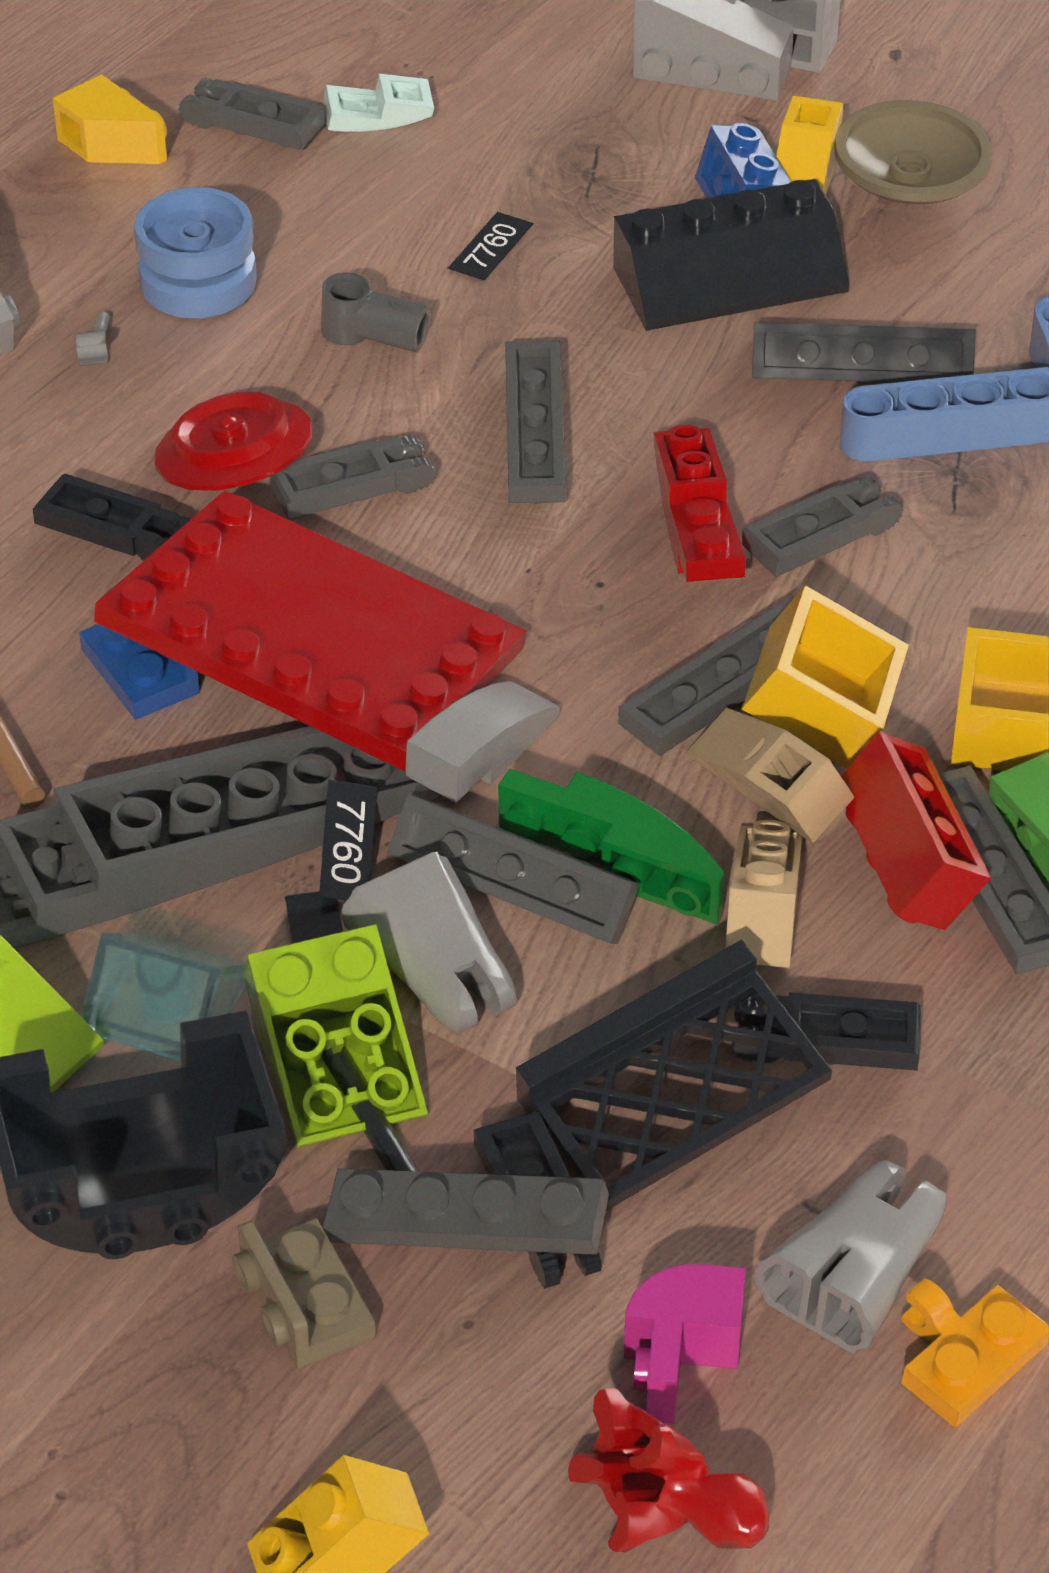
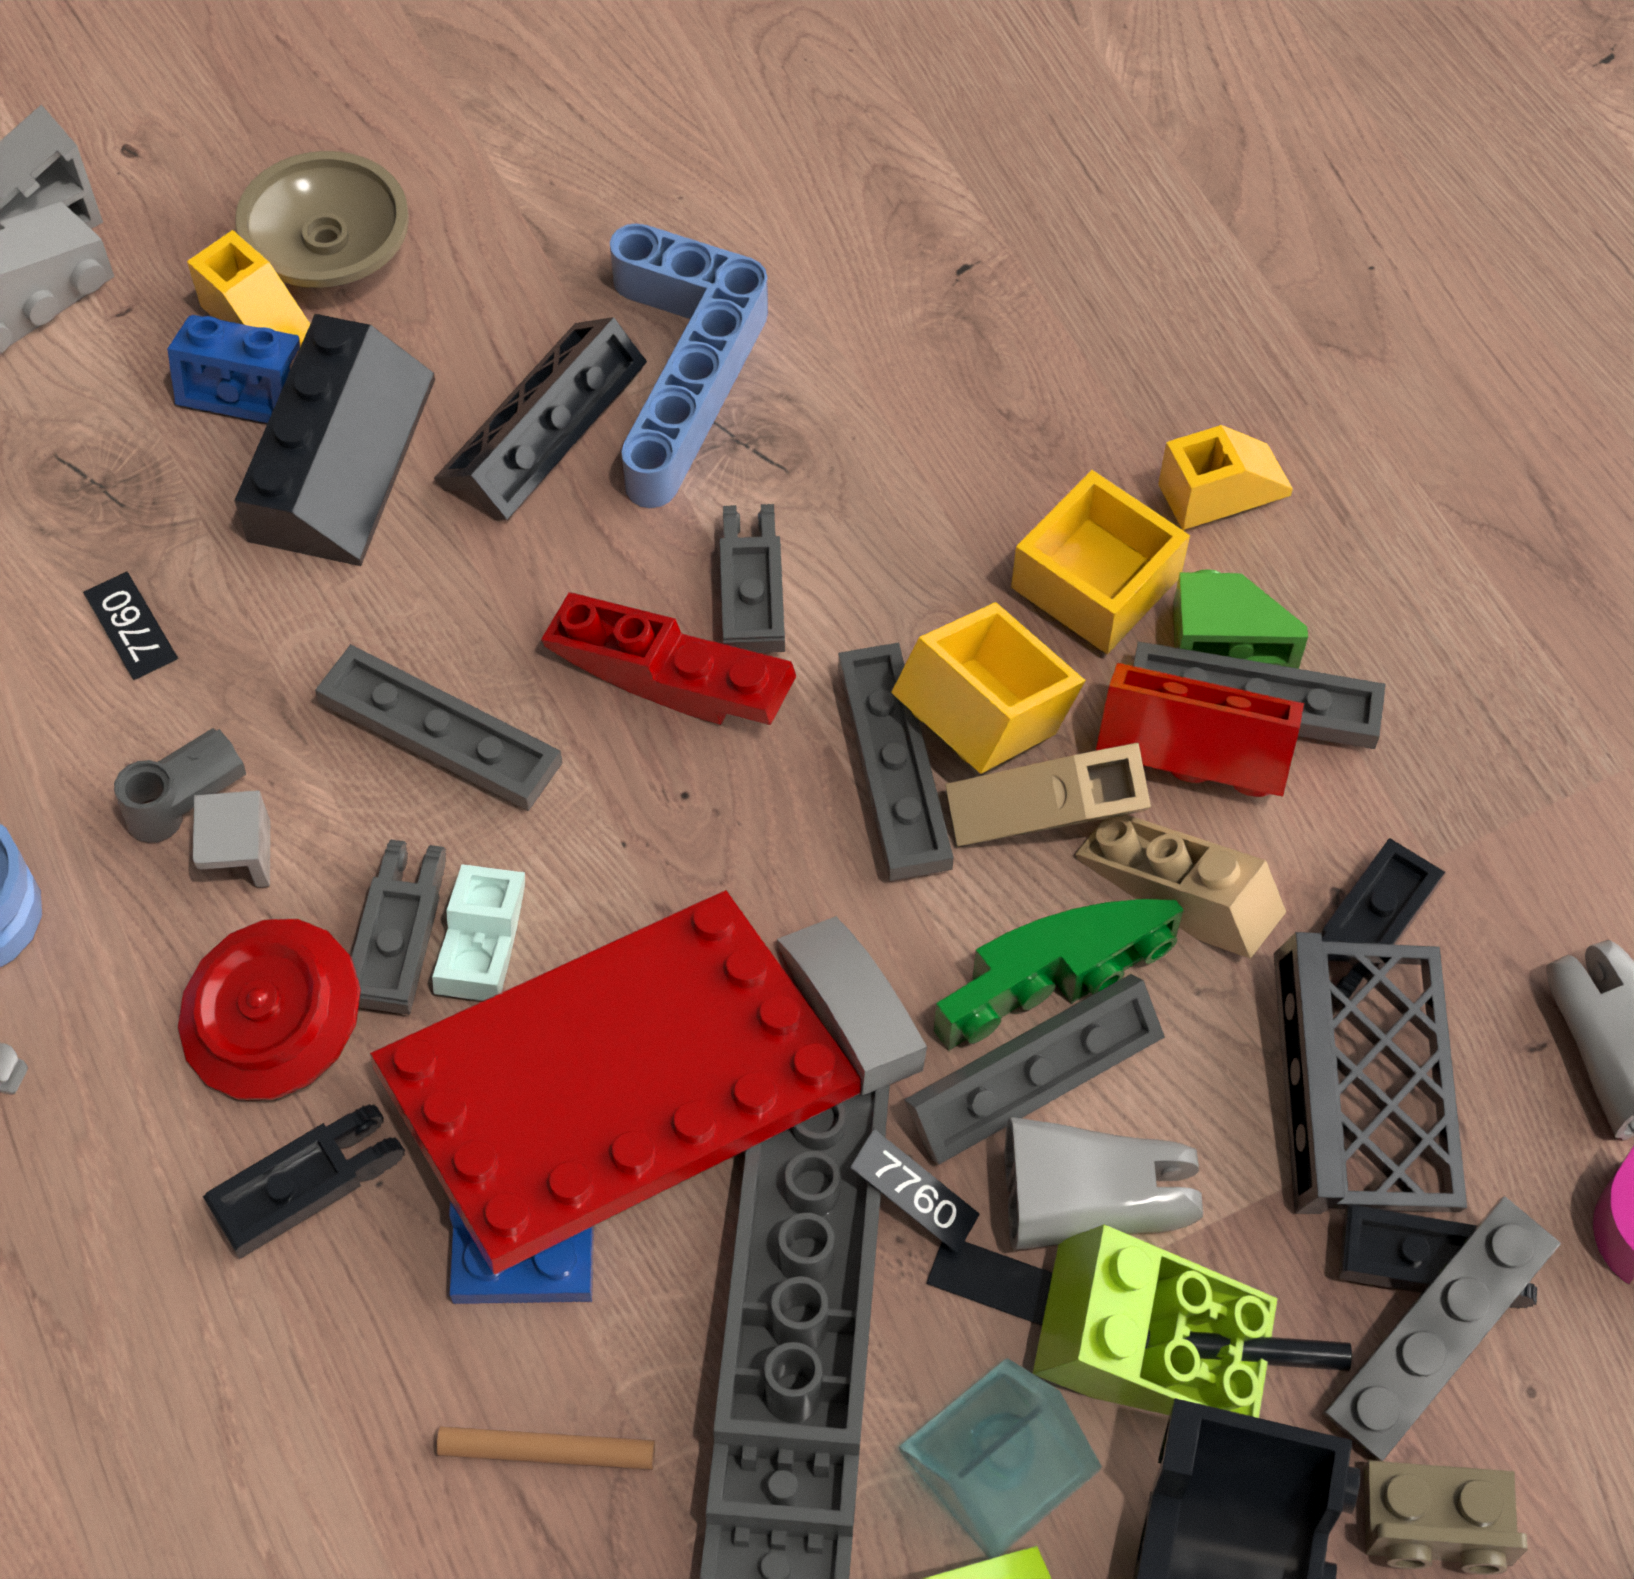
camera: 60 degrees left, 15 degrees up
(355, 359) = (232, 833): none -> light grey panel
(395, 521) = (479, 933): none -> light aqua slope

